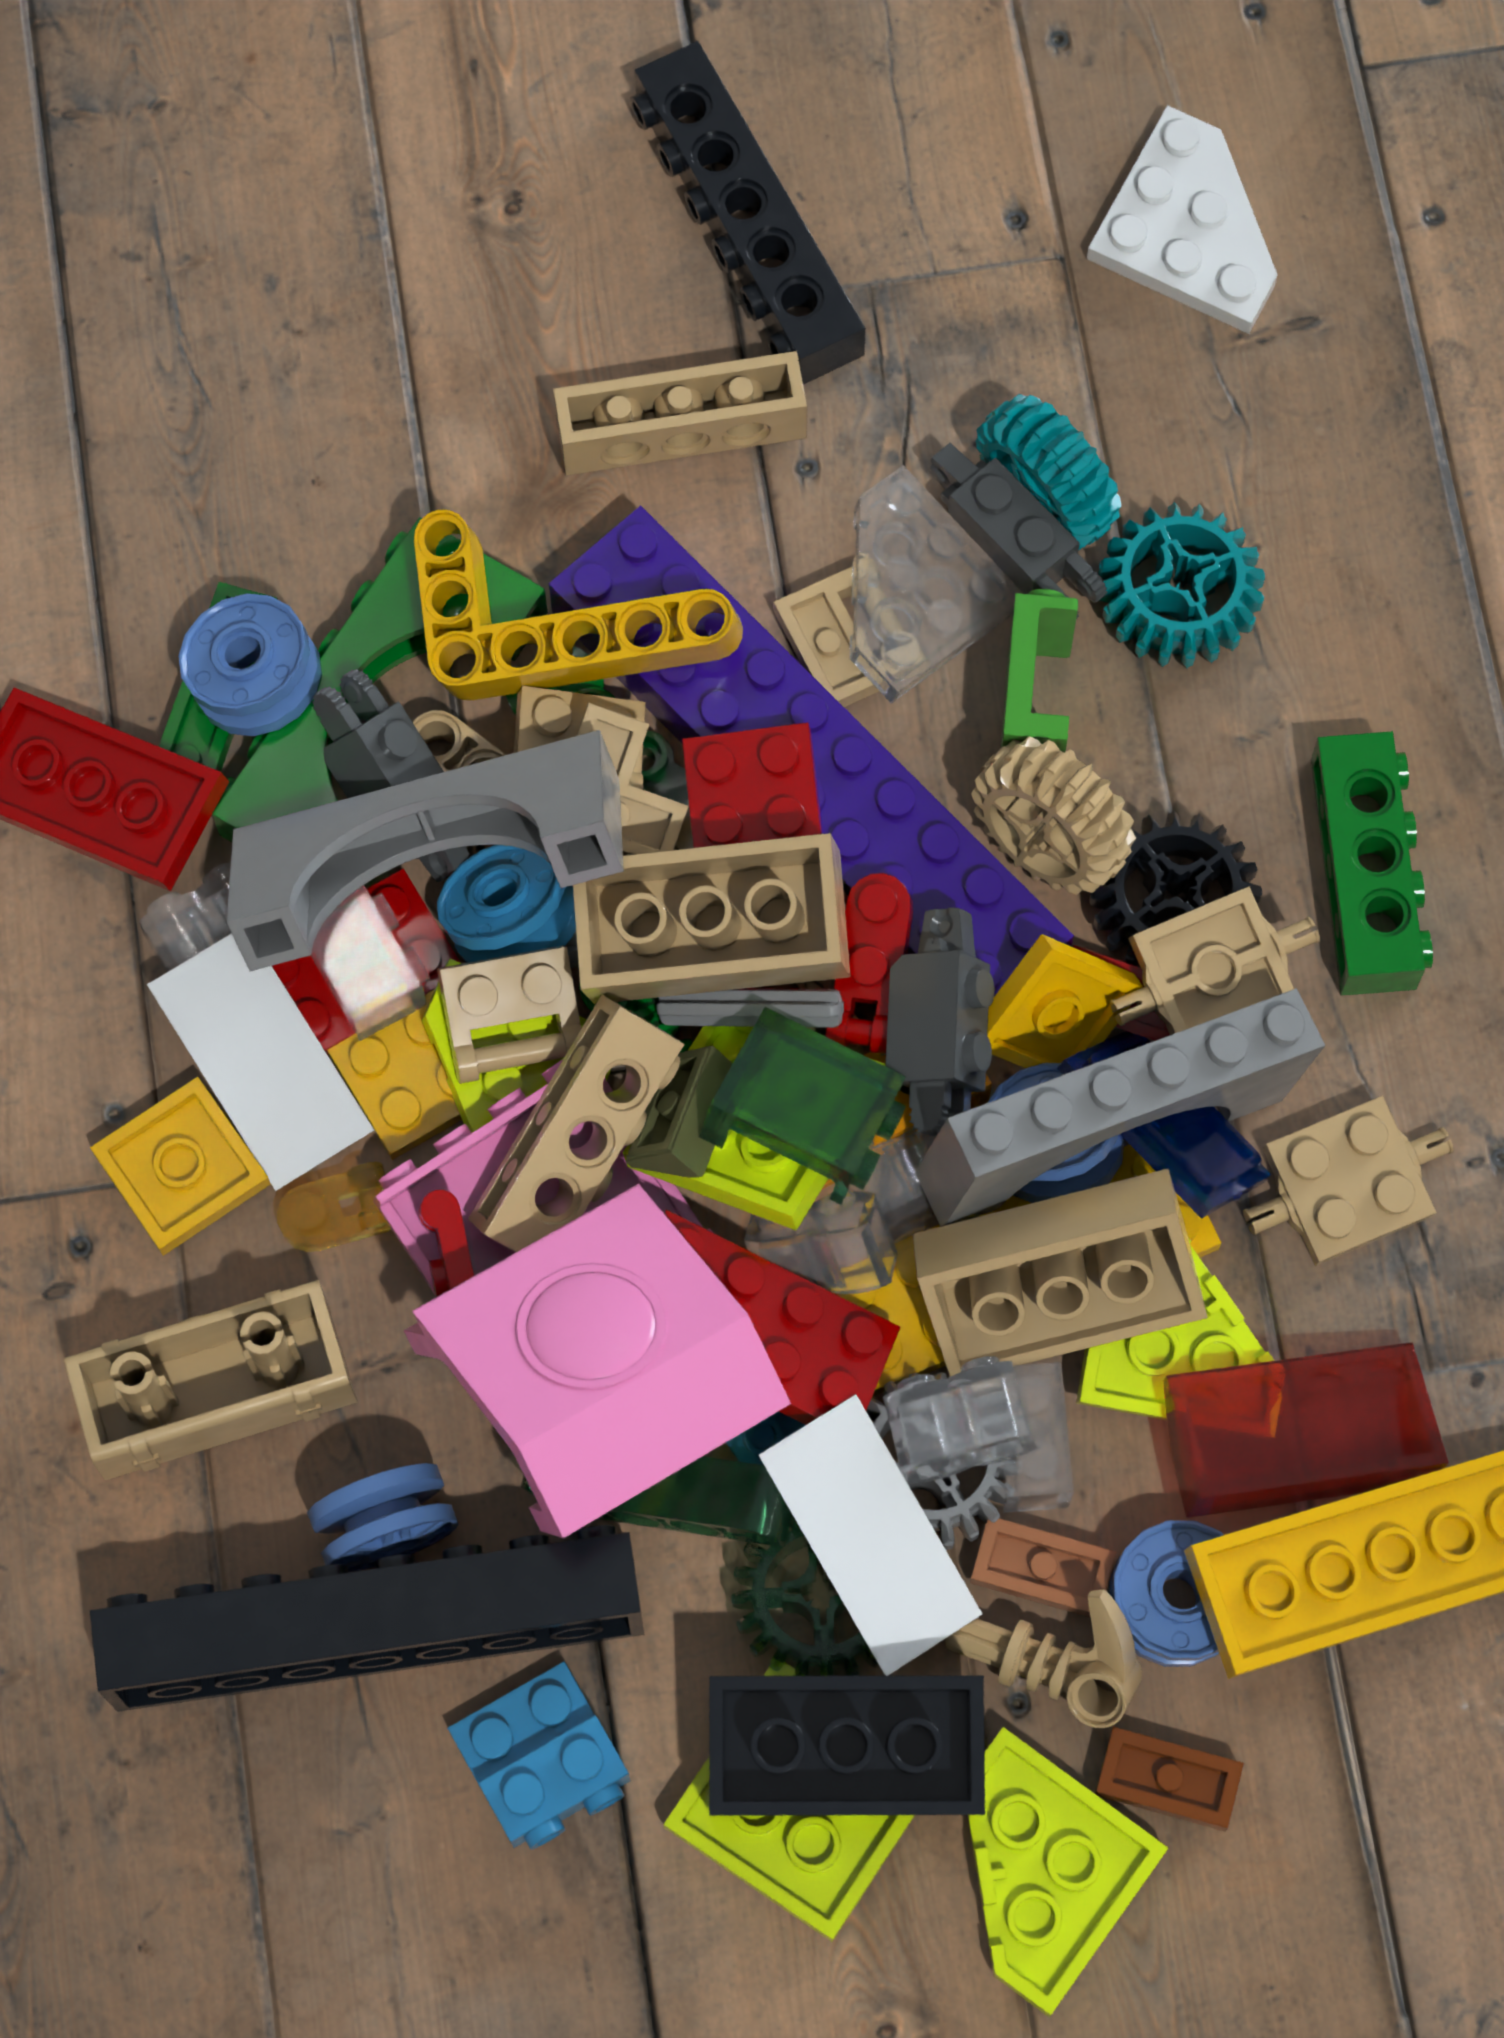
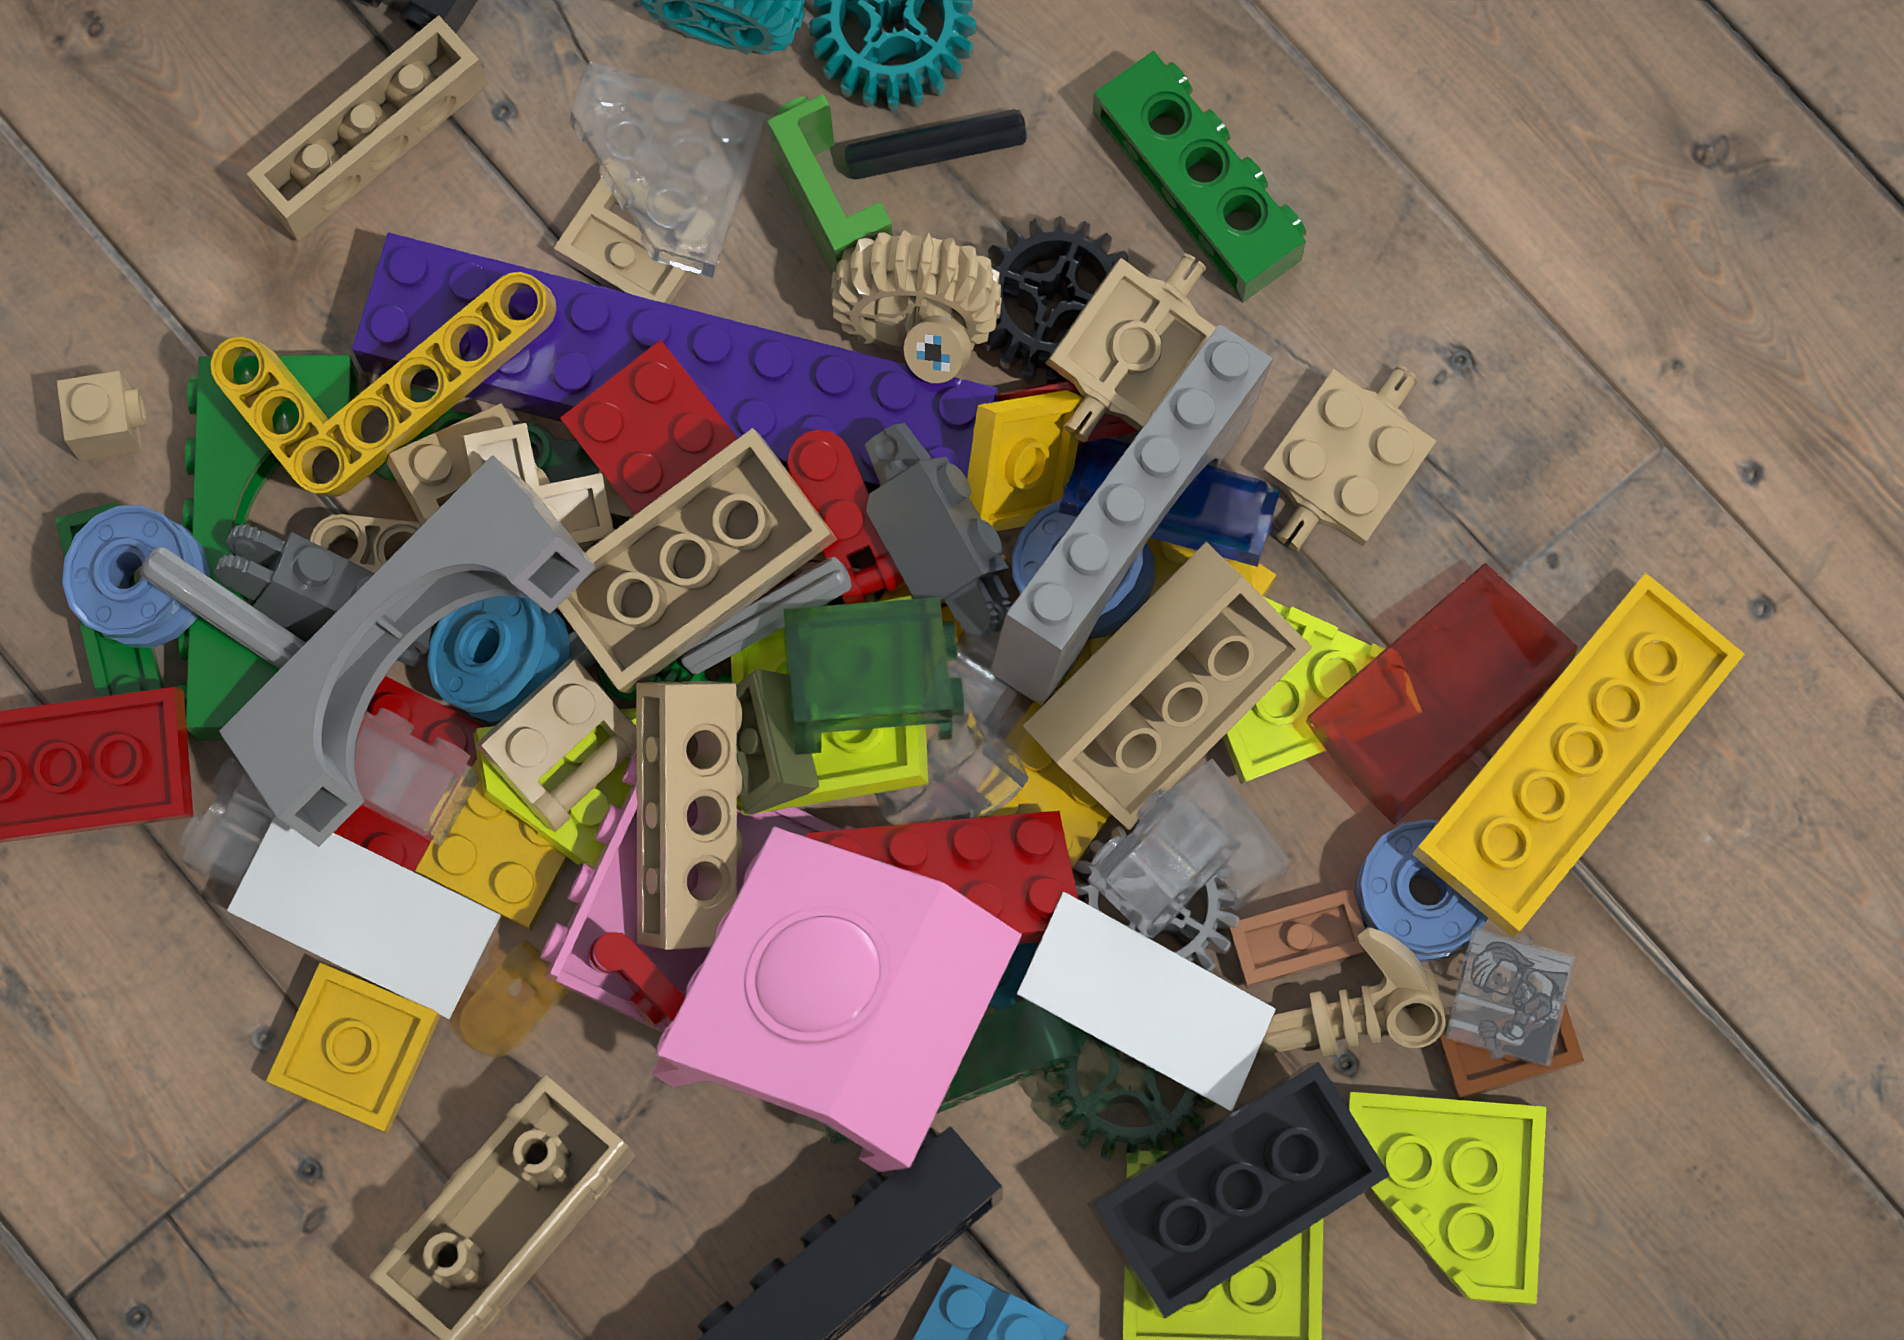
camera: 30 degrees left, 5 degrees up
(298, 725) = (220, 607): none -> light grey axle
(310, 520) = (101, 415): none -> tan brick
(383, 1516) = (727, 1241): medium blue wheel -> none
(1012, 525) = (719, 60): dark grey hinge -> none
(1040, 870) = (937, 349): none -> tan tile
(1156, 705) = (935, 144): none -> black axle
(1196, 1731) = (1511, 997): none -> clear piece

